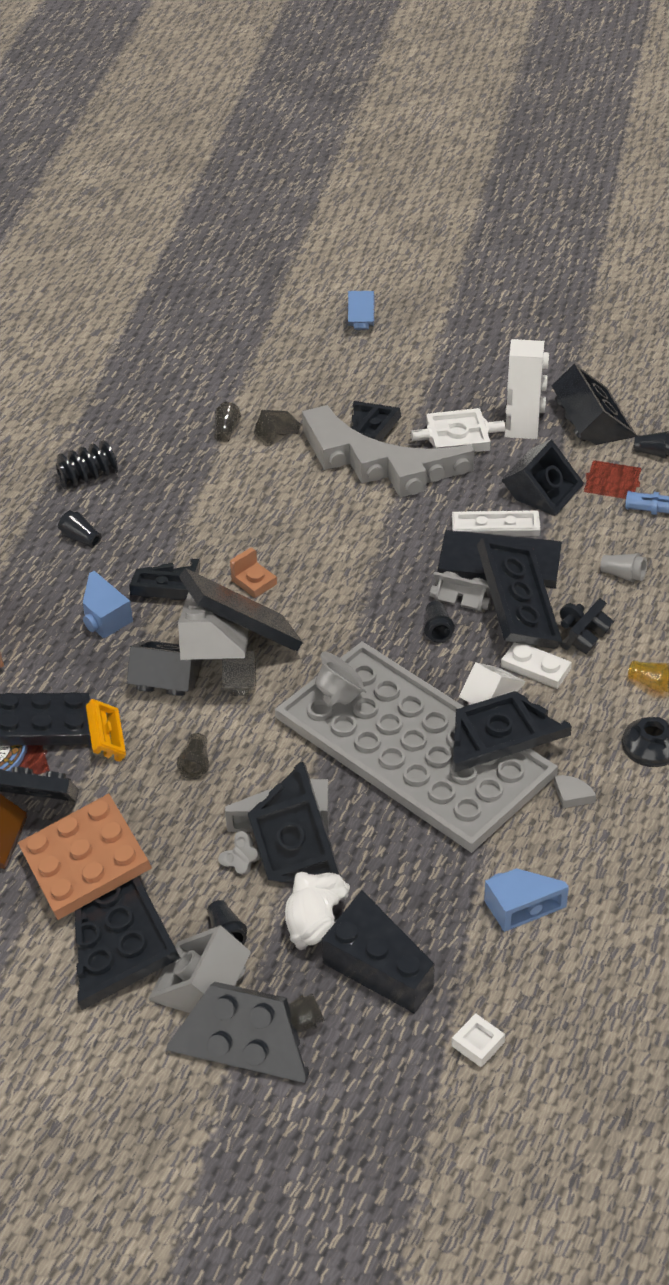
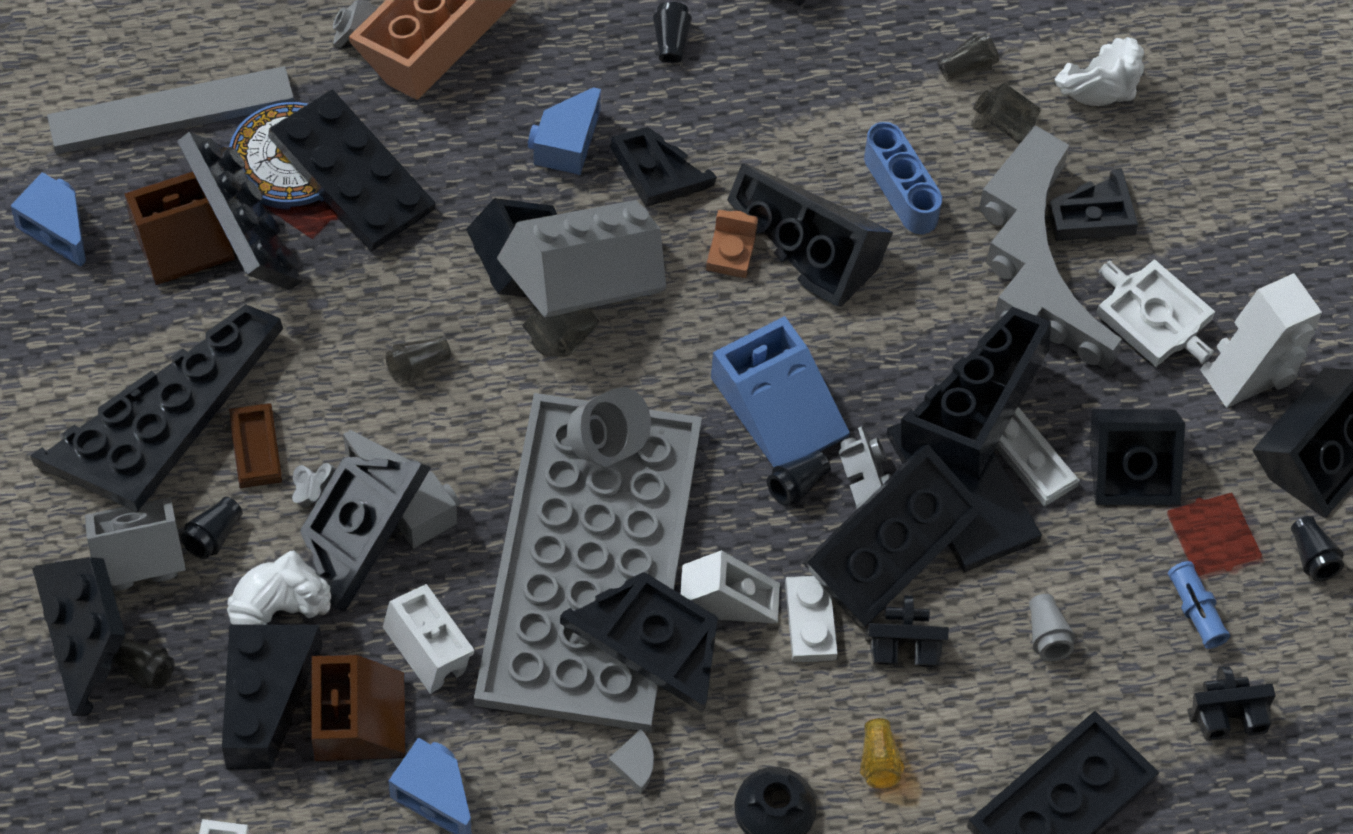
camera: 50 degrees right, 15 degrees up
(84, 856) = (203, 343): nougat plate -> none
(100, 729) = (367, 272): light orange tile -> none
(181, 874) = (255, 445): none -> reddish brown tile
(240, 610) = (625, 268): black tile -> none
(278, 482) = (899, 162): none -> medium blue beam
(284, 535) = (821, 239): none -> black wedge
(292, 373) = (1108, 76): none -> white hair
(361, 309) = (1302, 71): medium blue slope -> none
(376, 600) = (778, 393): none -> medium blue slope
(407, 848) = (427, 637): none -> white hinge
(432, 913) = (357, 709): none -> reddish brown slope
(459, 510) = (977, 400): none -> black wedge

